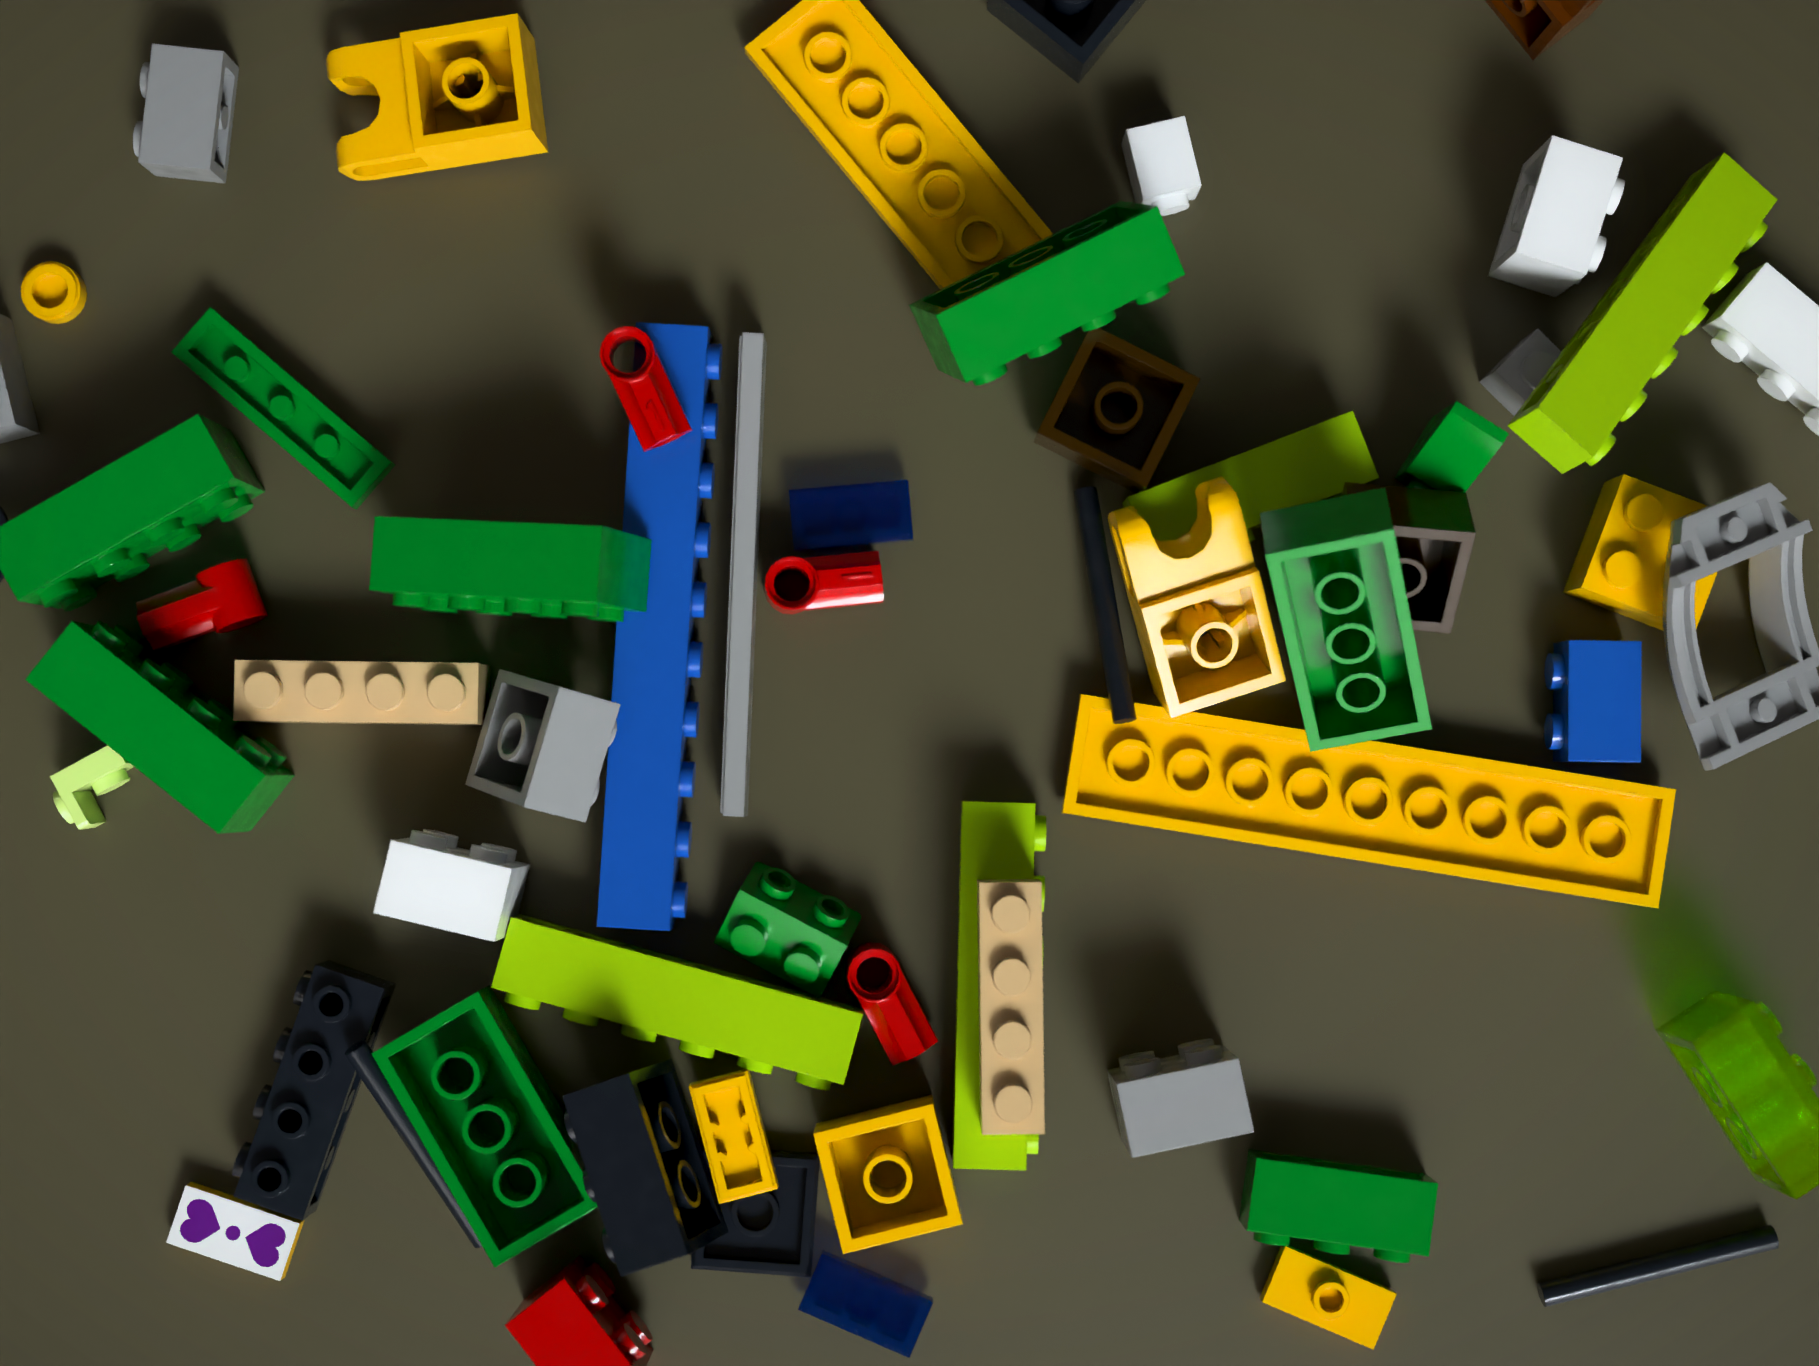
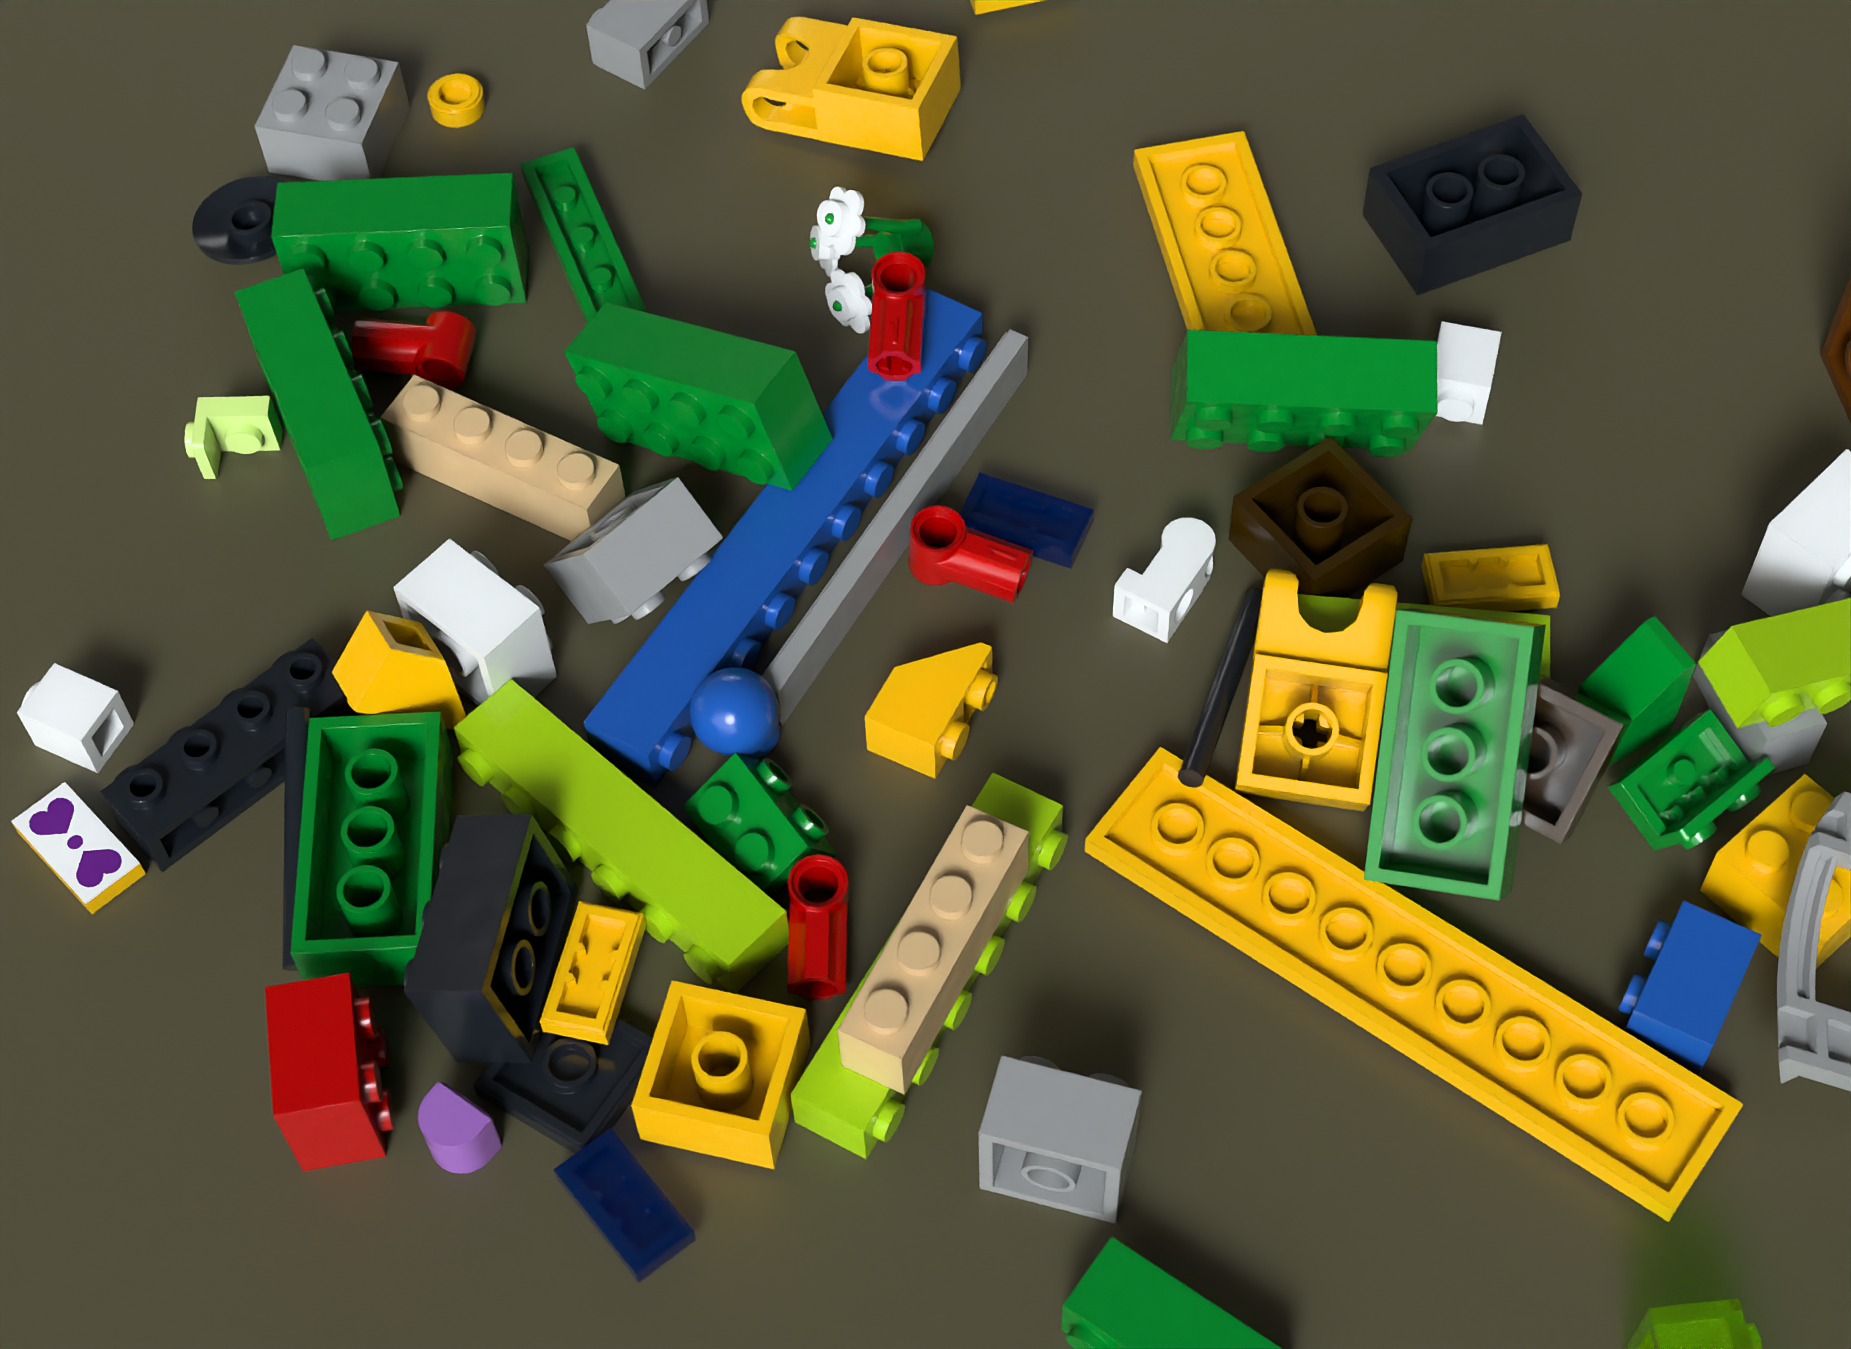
camera: 30 degrees right, 30 degrees down
(153, 1127) = (75, 717): none -> white brick
(418, 973) = (396, 670): none -> yellow slope
(535, 307) = (840, 232): none -> white plant
(702, 1316) = (457, 1130): none -> medium lavender brick
(717, 852) = (736, 713): none -> blue piece
(866, 751) = (927, 708): none -> yellow slope
(1011, 492) = (1171, 582): none -> white leg
(1277, 378) = (1492, 578): none -> yellow plate
(1527, 510) = (1688, 784): none -> green bracket

